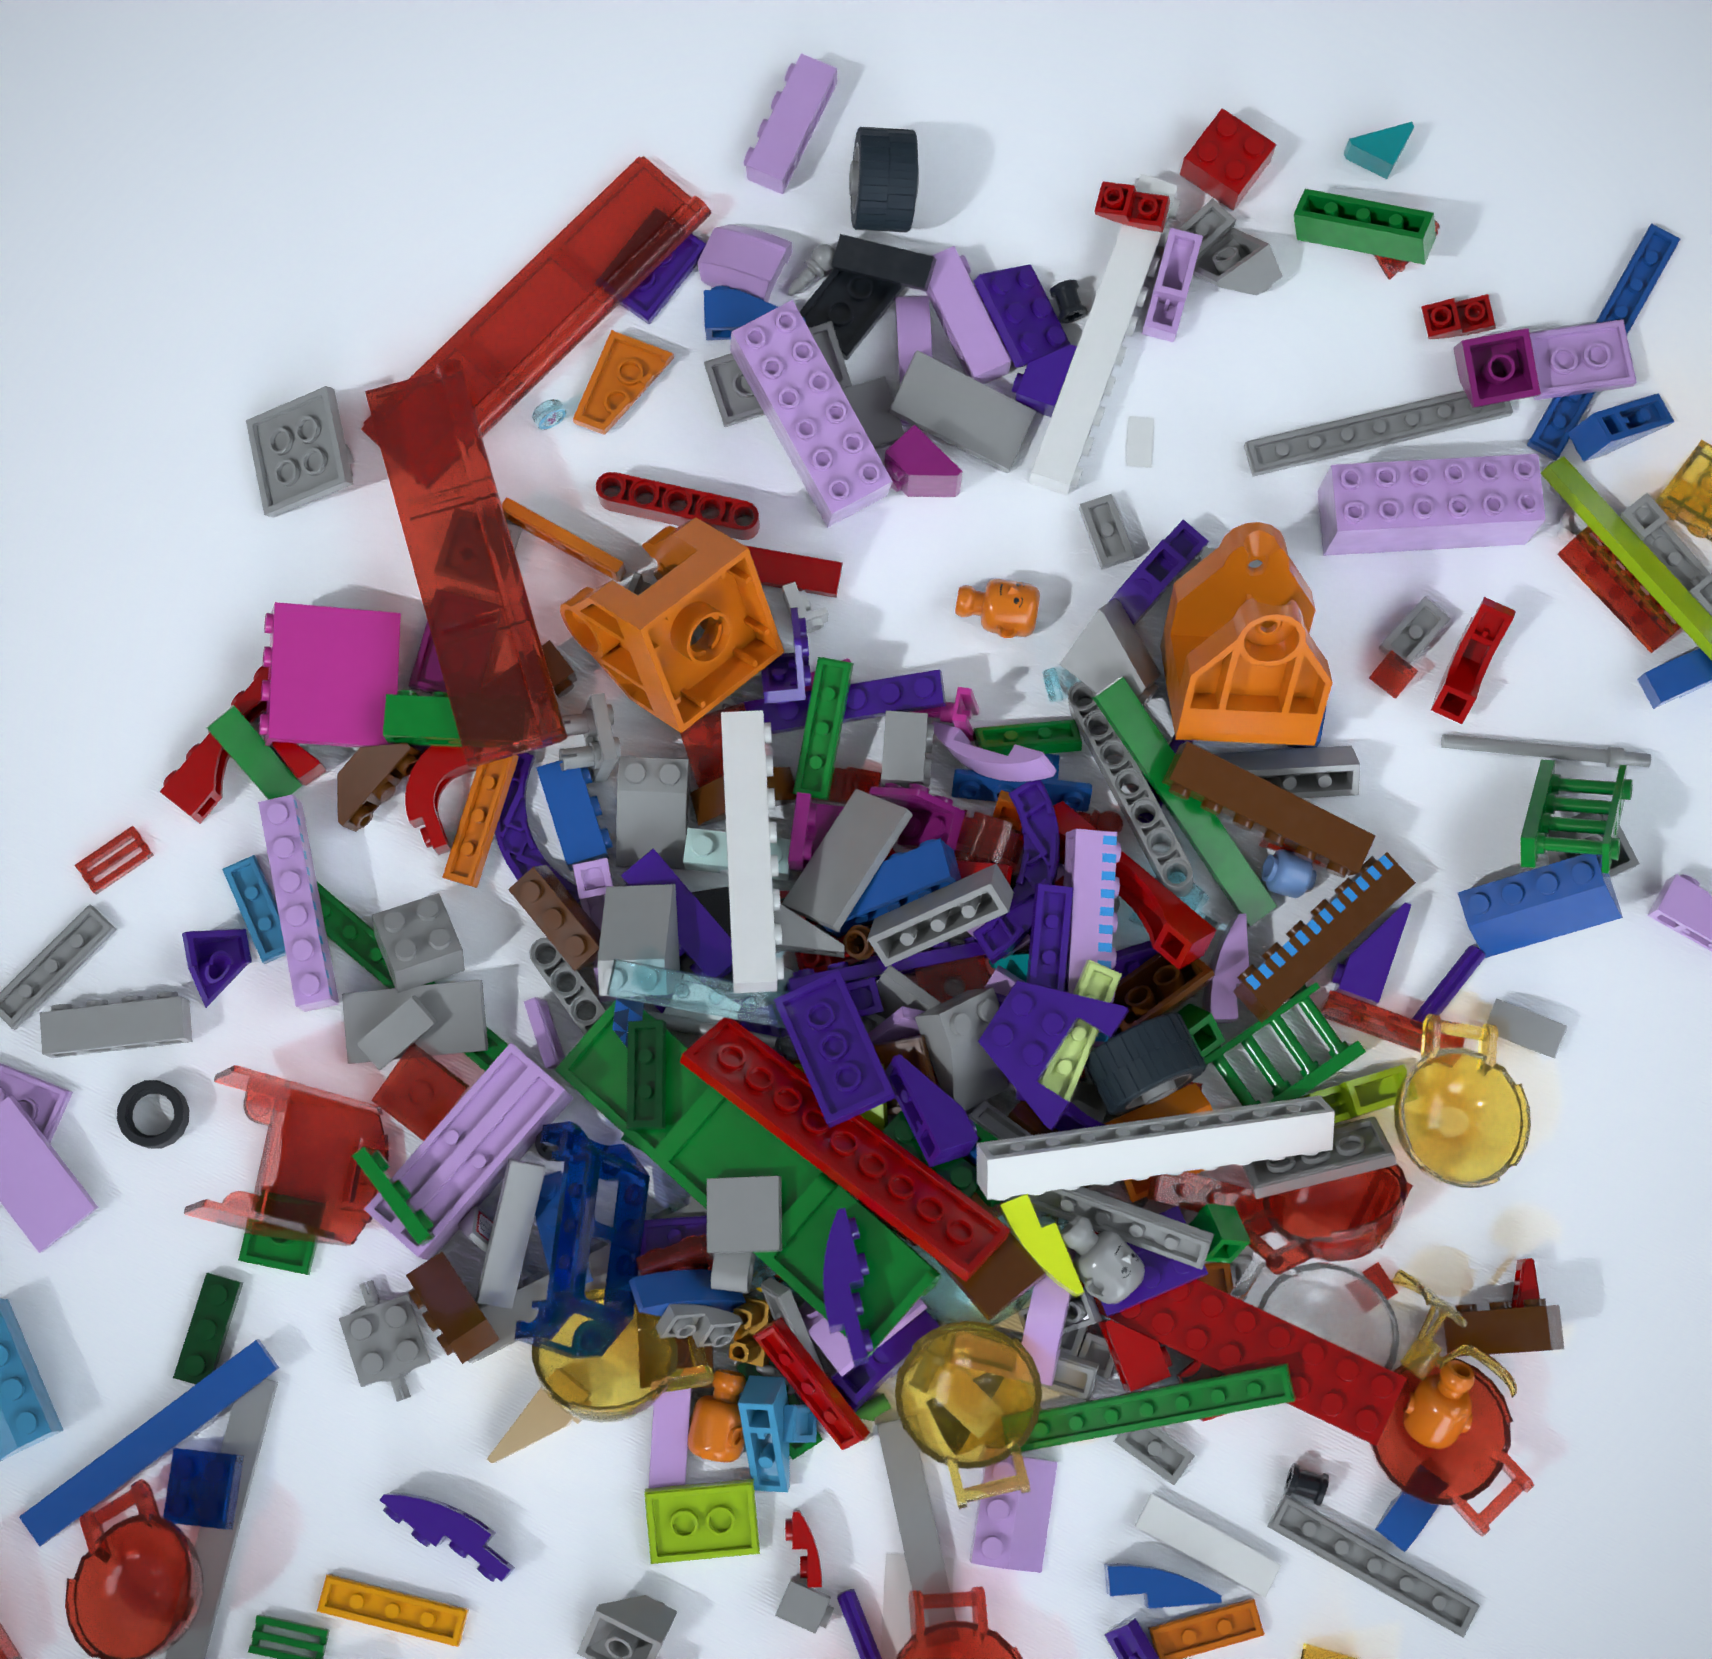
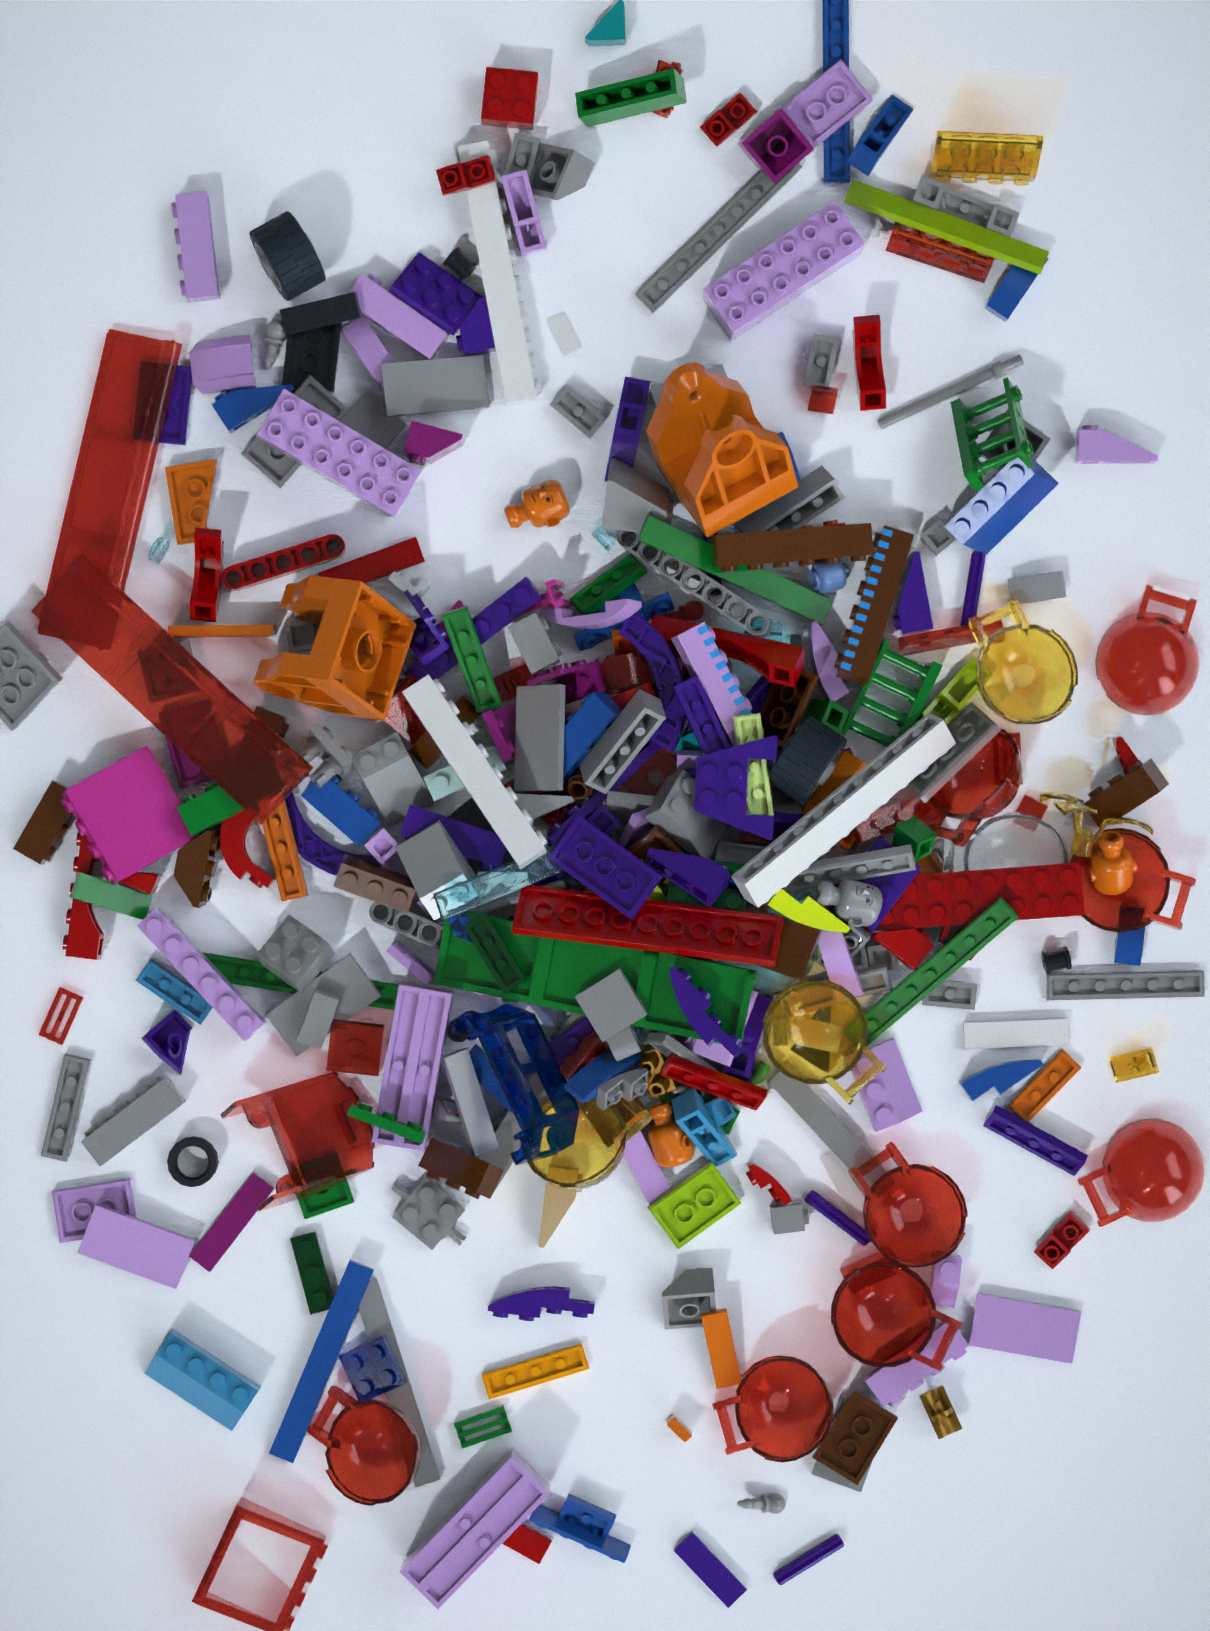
camera: 30 degrees left, 10 degrees up
(148, 1213) = (231, 1222): none -> magenta tile
(230, 639) = (45, 826): none -> reddish brown brick
(575, 483) = (207, 574): none -> red arch
(1440, 904) = (937, 537): none -> light grey plate
(1614, 1189) = (1149, 658): none -> clear red windscreen

